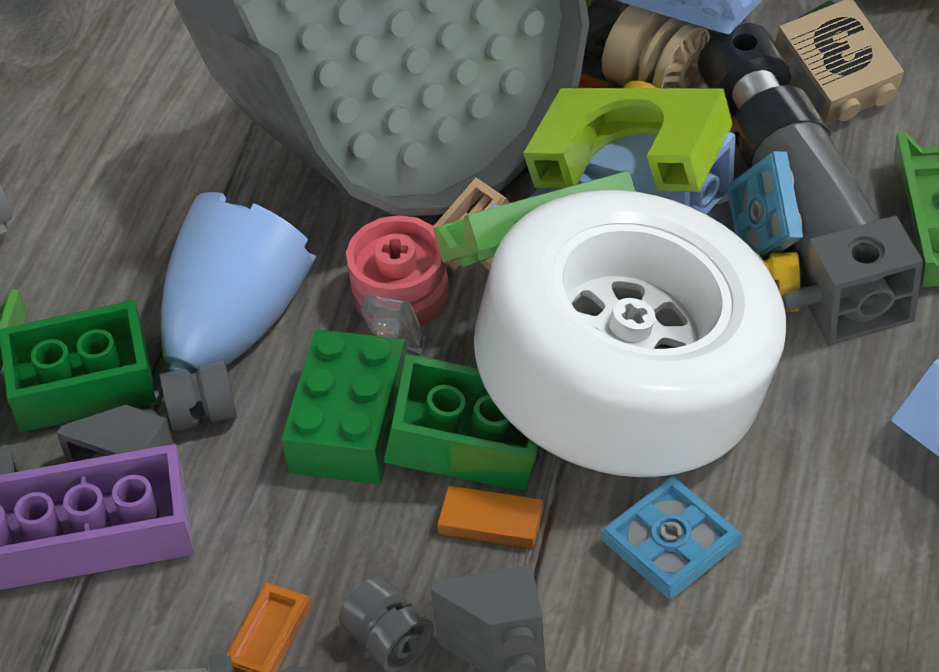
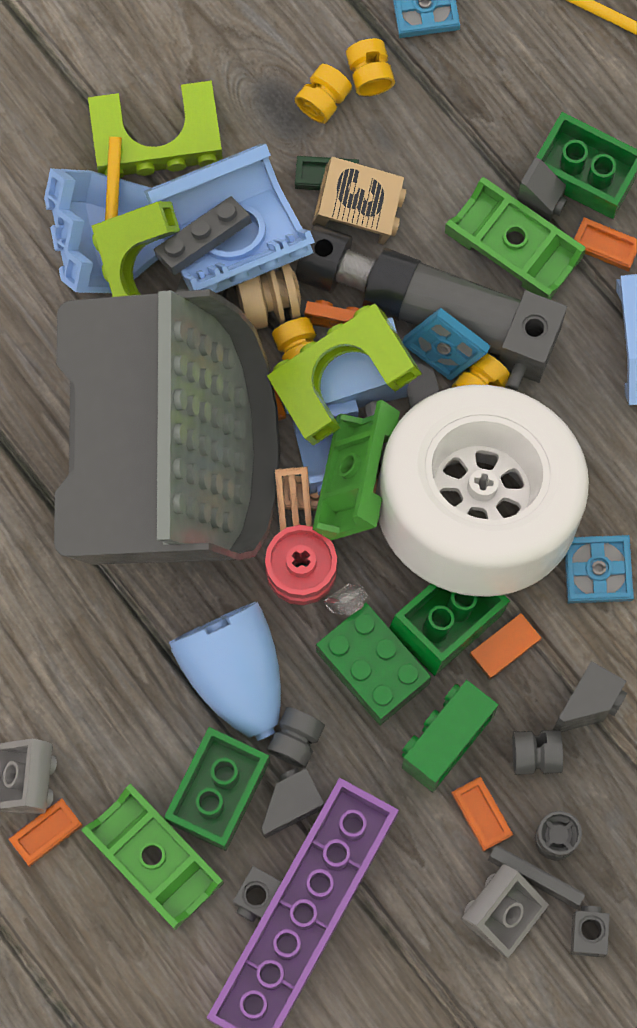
camera: 55 degrees left, 25 degrees up
(321, 518) = (448, 734): none -> green brick

